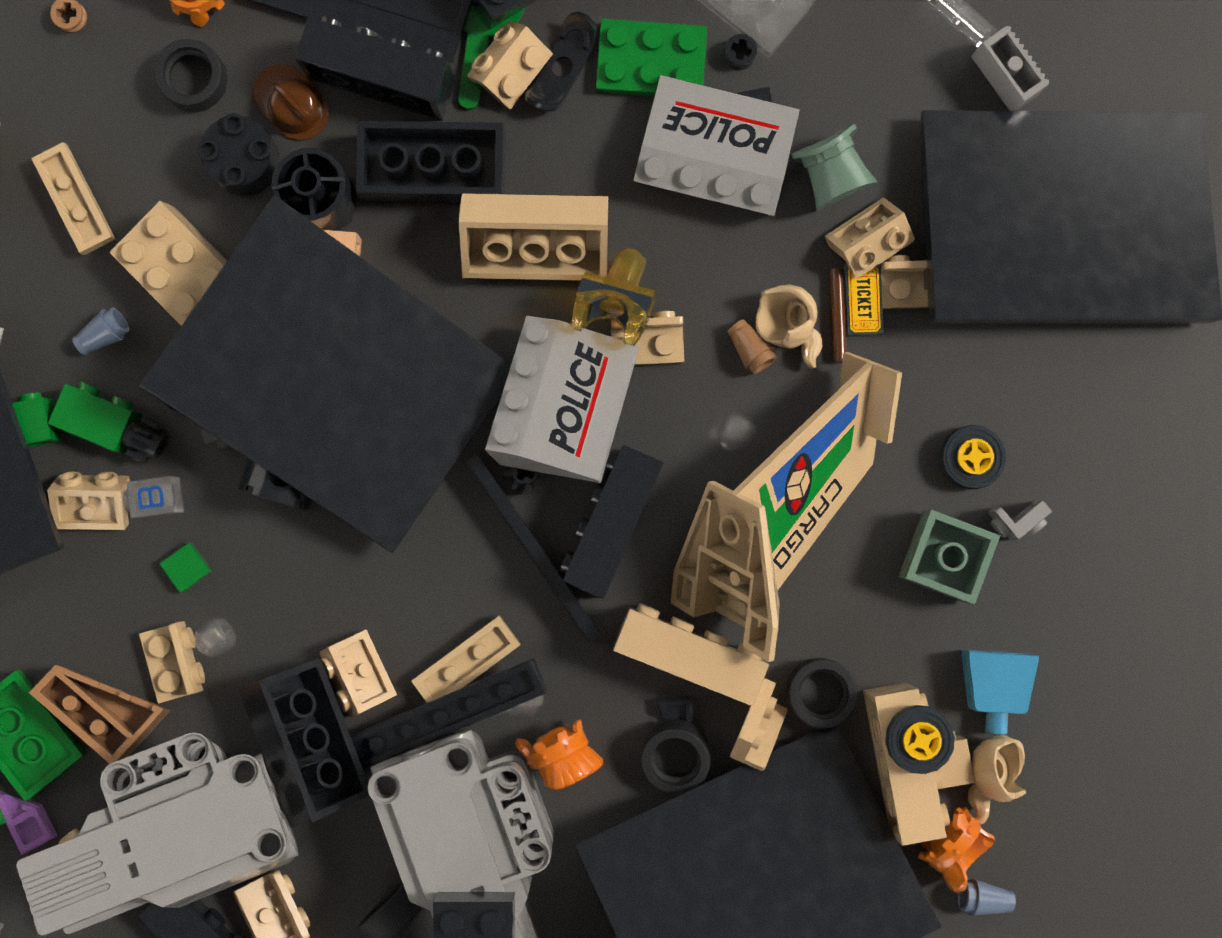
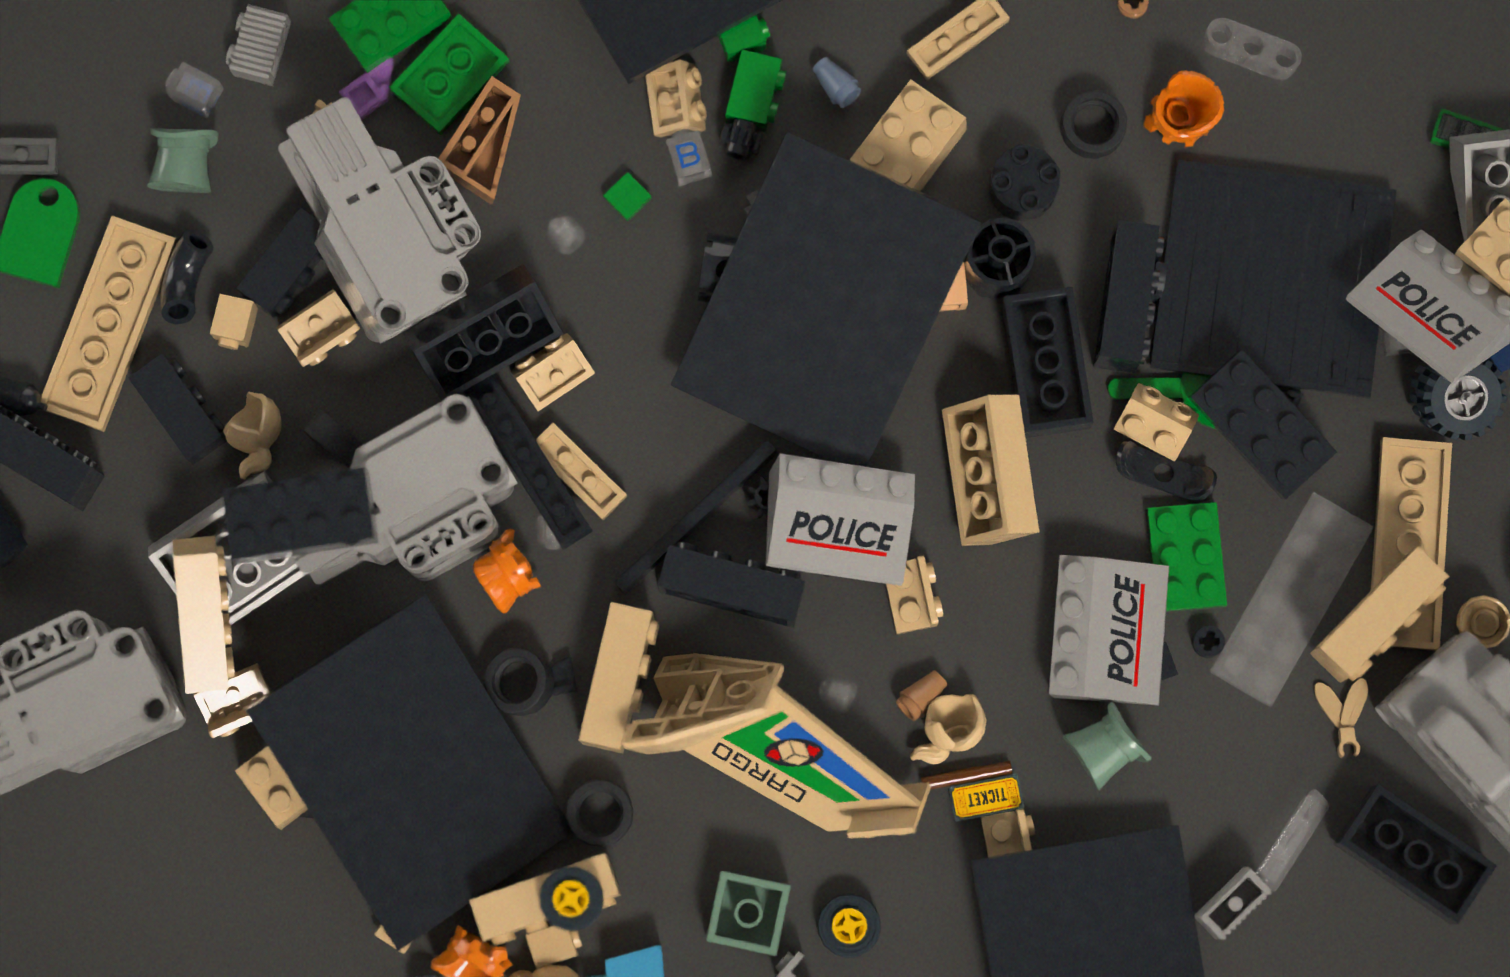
camera: 85 degrees right, 5 degrees down
(172, 661) = (537, 198): tan bracket -> none
(290, 102) = (1086, 221): reddish brown piece -> none
(616, 297) = (945, 555): clear yellow connector -> none
(759, 729) = (558, 755): tan bracket -> none
(871, 237) = (1046, 794): tan bracket -> none

